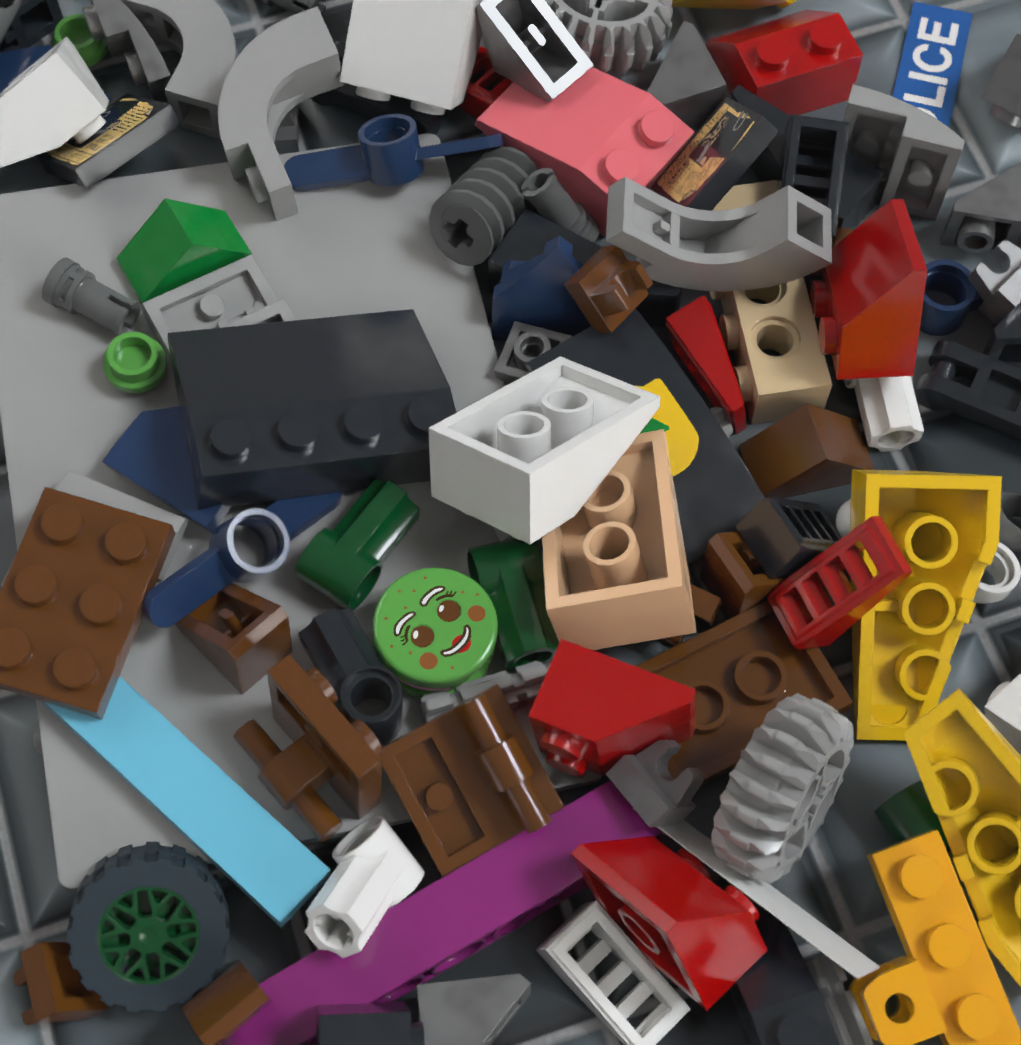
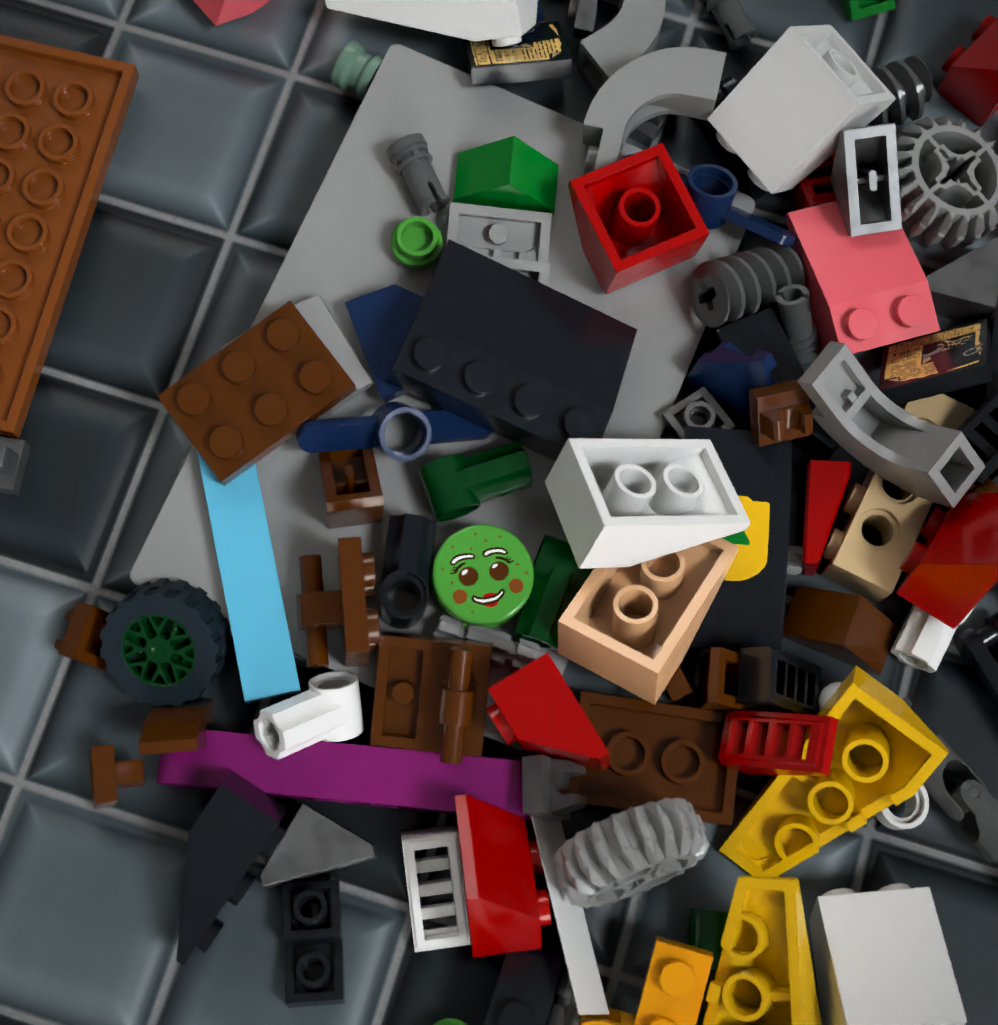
camera: 30 degrees right, 10 degrees up
(339, 206) = (635, 218): none -> red slope

